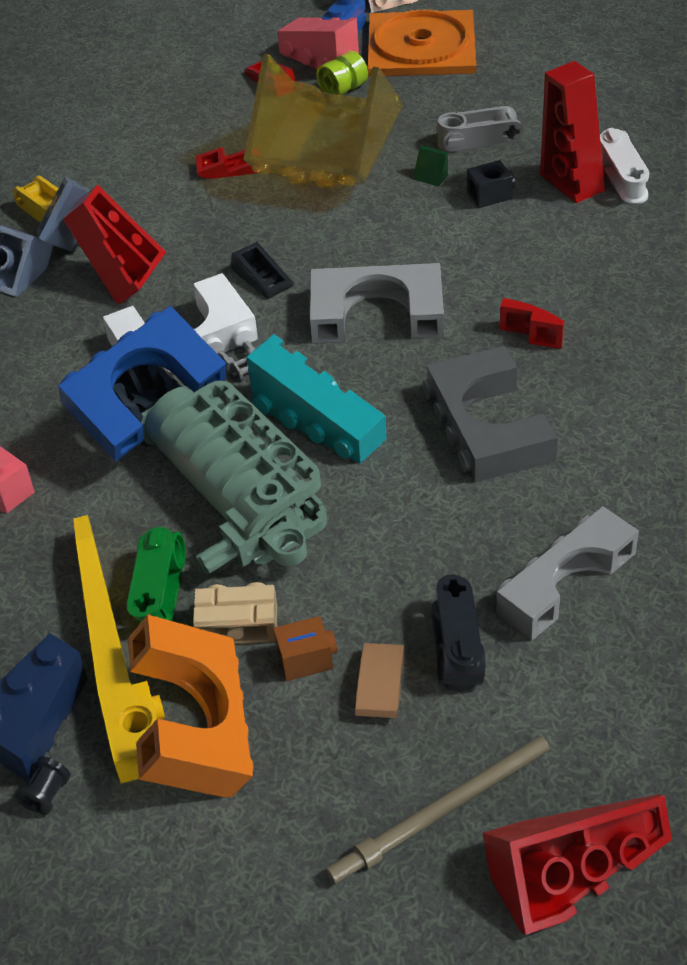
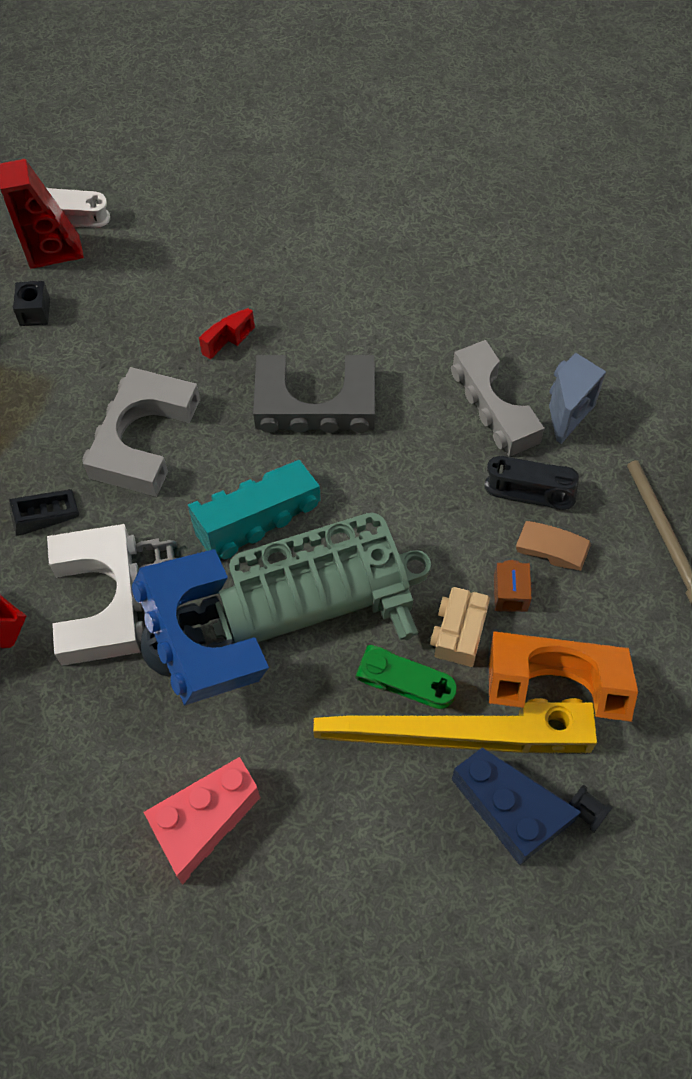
camera: 75 degrees left, 15 degrees up
(592, 635) = (573, 394): none -> sand blue slope

